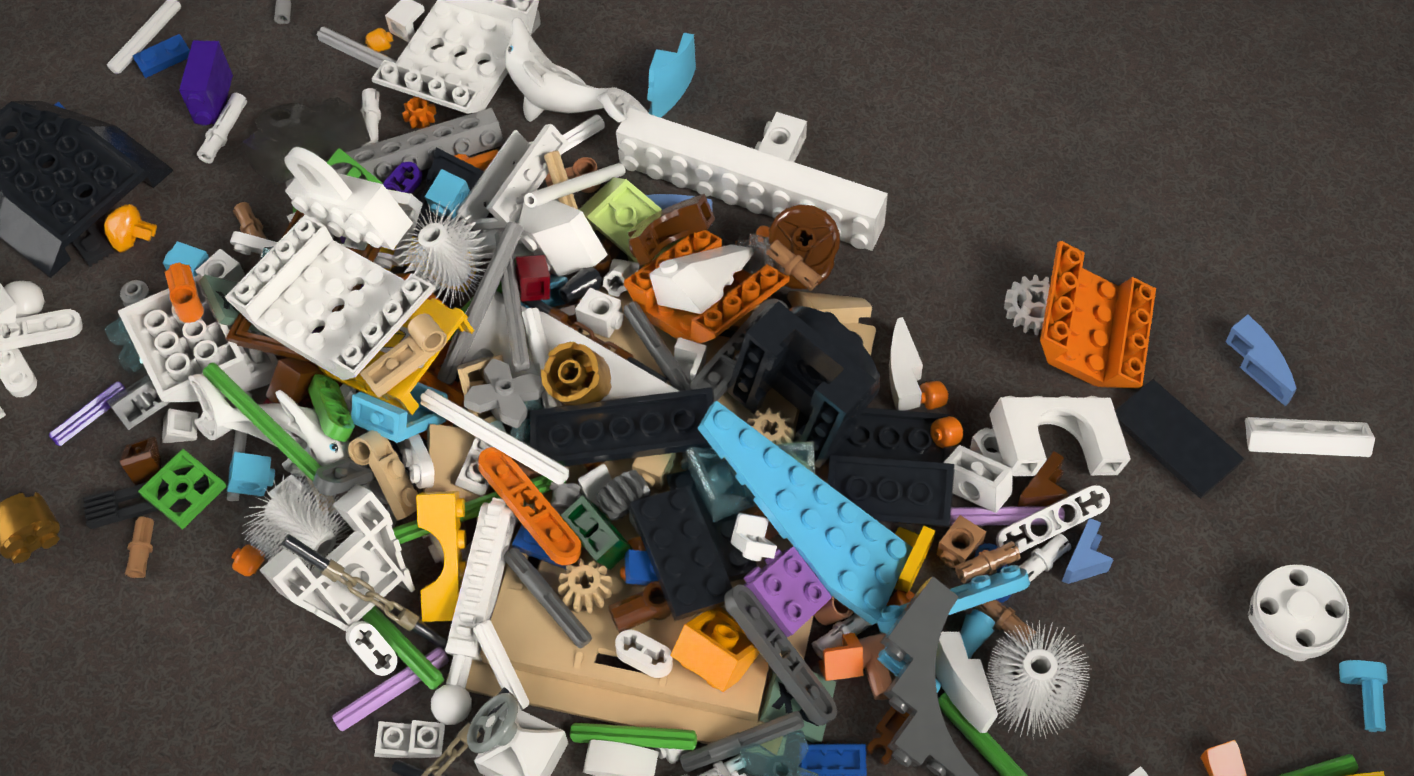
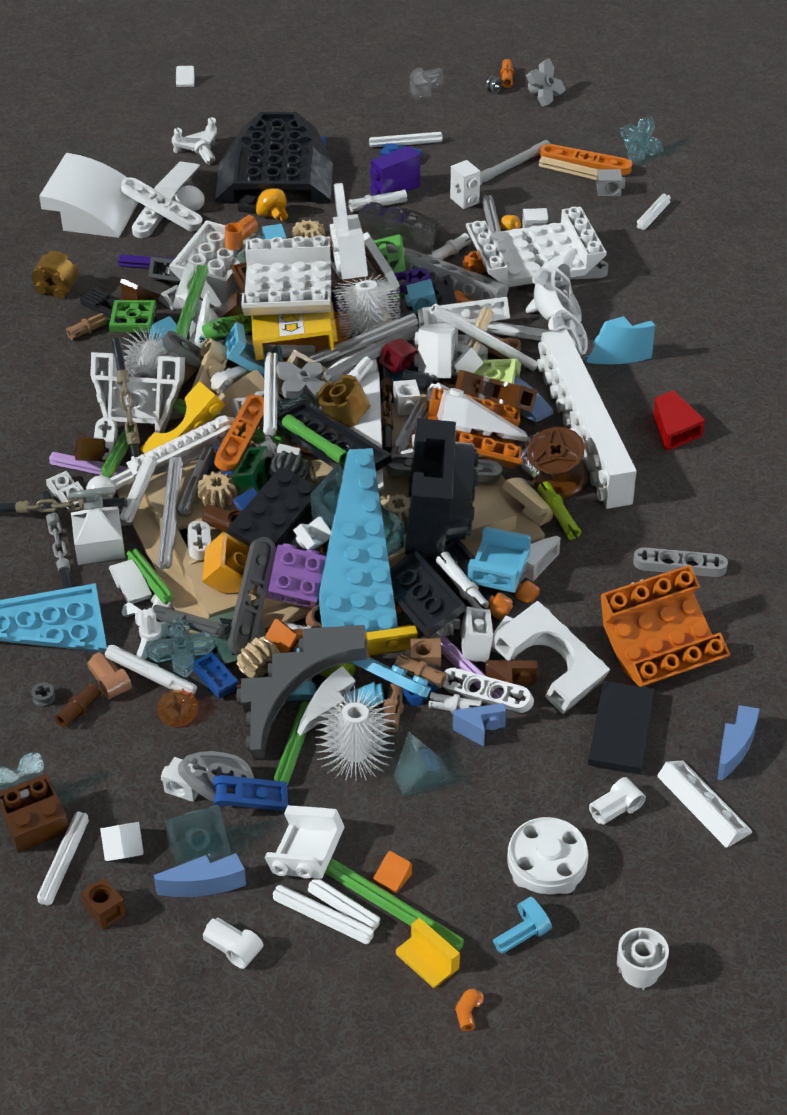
camera: 50 degrees right, 15 degrees down
(213, 227) = (308, 228): none -> tan gear
(293, 35) = (465, 184): none -> white brick
(370, 680) = (88, 448): none -> reddish brown slope
(423, 342) = (278, 323): tan plate -> none
(574, 655) = (170, 513): none -> light grey axle
(599, 222) = (467, 361): none -> white panel
(659, 438) = (299, 428): none -> bright green piece
(783, 137) = (635, 420): white brick -> none
(793, 265) = (529, 455): medium nougat pin -> none
(815, 105) = (676, 420): none -> red slope
(842, 288) = (555, 502): none -> lime pin
(852, 704) = (255, 657): none -> tan gear
(906, 393) = (500, 559): none -> medium azure panel
(908, 444) = (467, 589): none -> white pin
(996, 241) = (680, 560): none -> light grey beam
(1107, 649) = (419, 768): none -> clear light blue slope
(1267, 500) = (621, 798): none -> white piece

